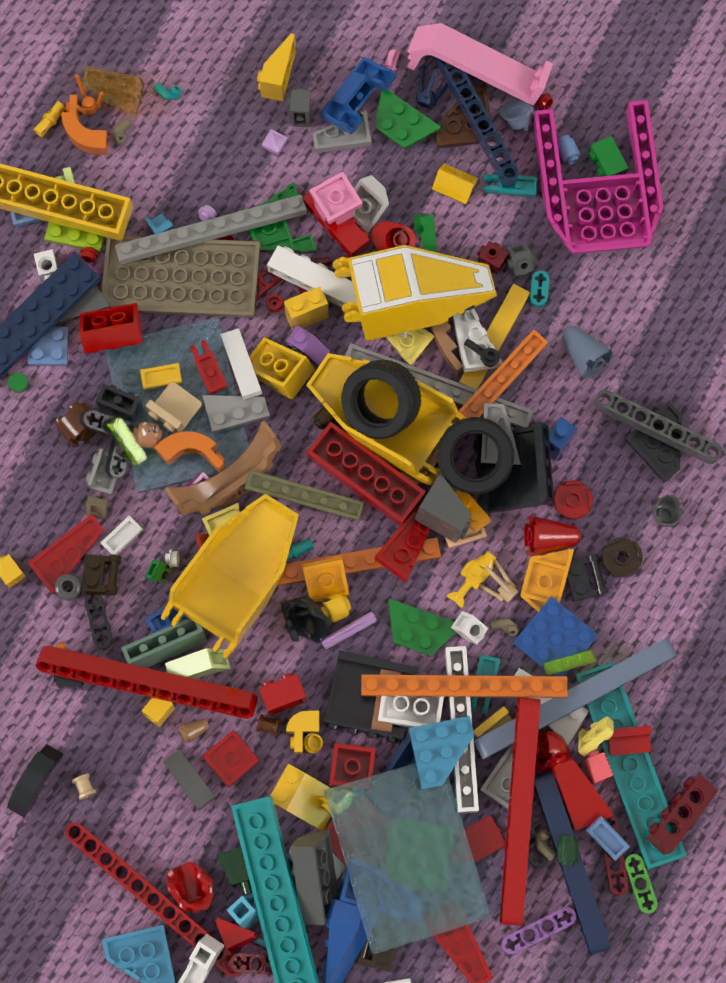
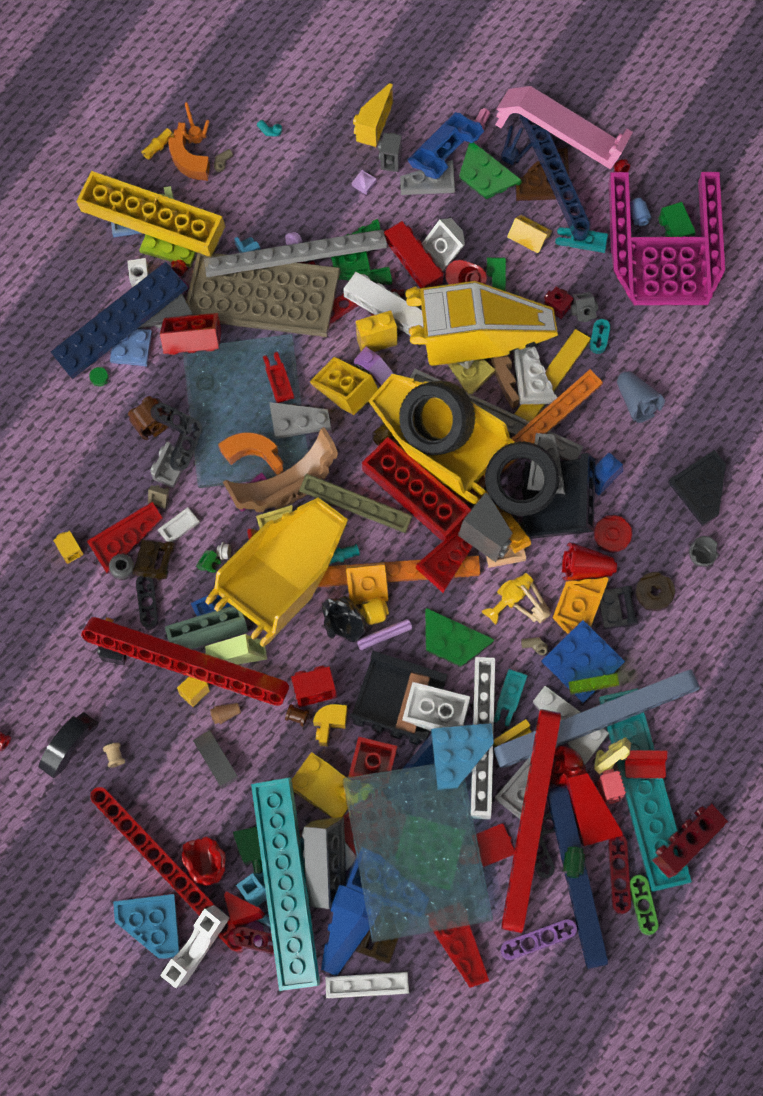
camera: 10 degrees right, 5 degrees down
(119, 89) = (224, 121): clear yellow wedge -> none
(119, 402) = (190, 401): black brick -> none
(127, 441) = (193, 436): clear neon green piece -> none
(147, 434) = (213, 433): nougat head -> none
(161, 376) = (232, 382): yellow tile -> none
(174, 408) = (241, 411): tan bracket -> none
(231, 758) = (257, 743): red plate -> none
(241, 364) = (309, 378): white tile -> none
(274, 308) = (347, 322): red plate -> none
(312, 743) = (338, 736): yellow plate -> none
(336, 199) = (414, 234): bright pink panel -> none
(463, 625) = (494, 639): white brick -> none
(464, 686) = (489, 695): orange plate -> none
(488, 356) = (544, 391): black plate -> none
(517, 114) = (594, 176): sand blue piece -> none
(542, 844) = (550, 855): dark tan arm -> none
(607, 838) = (615, 856): medium blue tile -> none
(667, 425) = (706, 479): dark grey beam -> none

